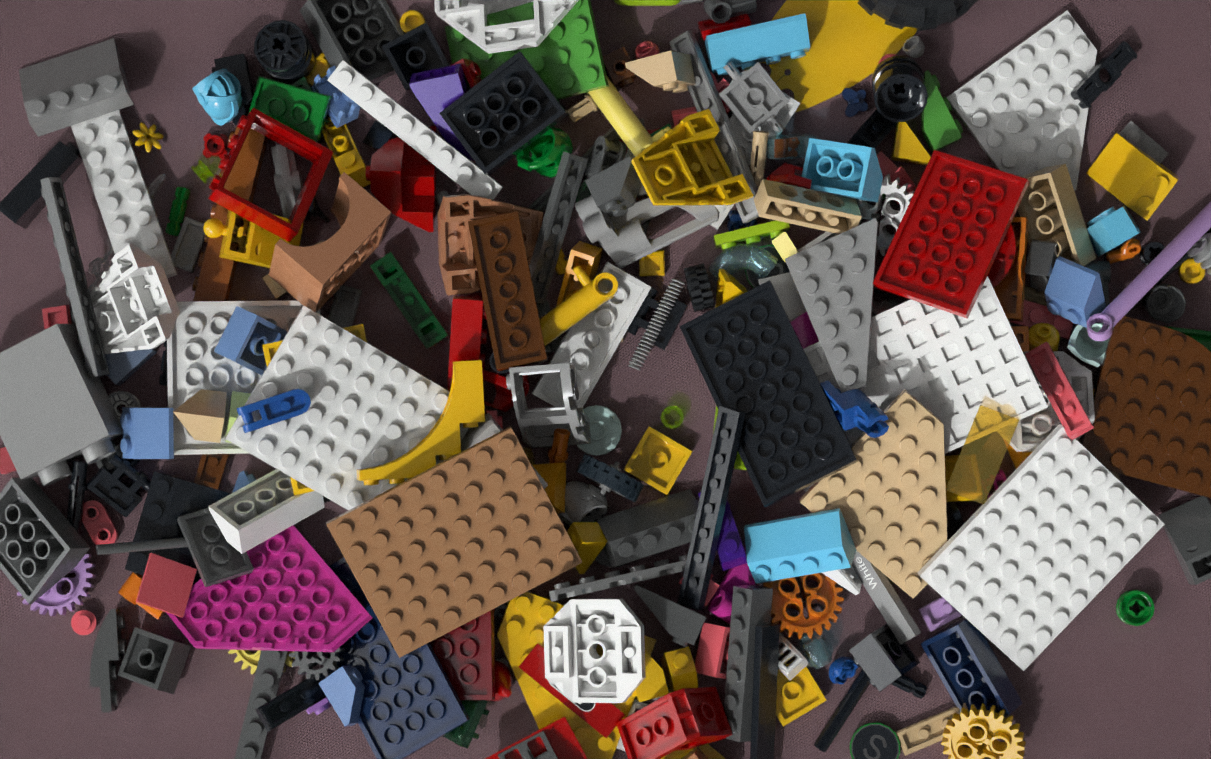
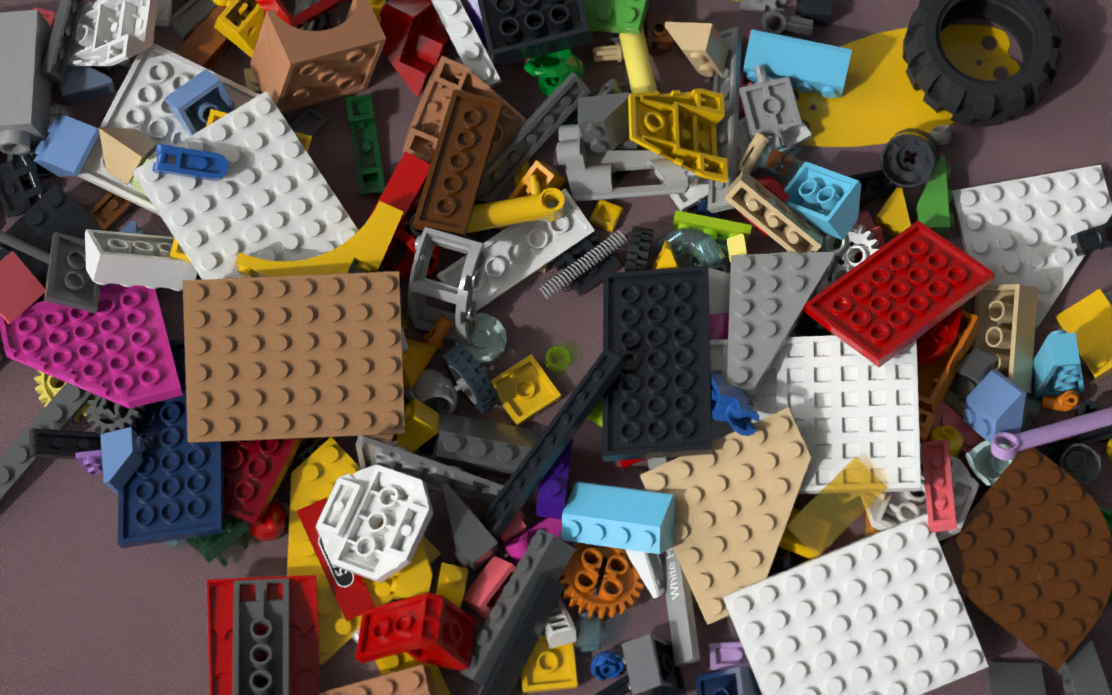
camera: 25 degrees right, 15 degrees down
(855, 101) = (864, 158): dark blue piece -> none

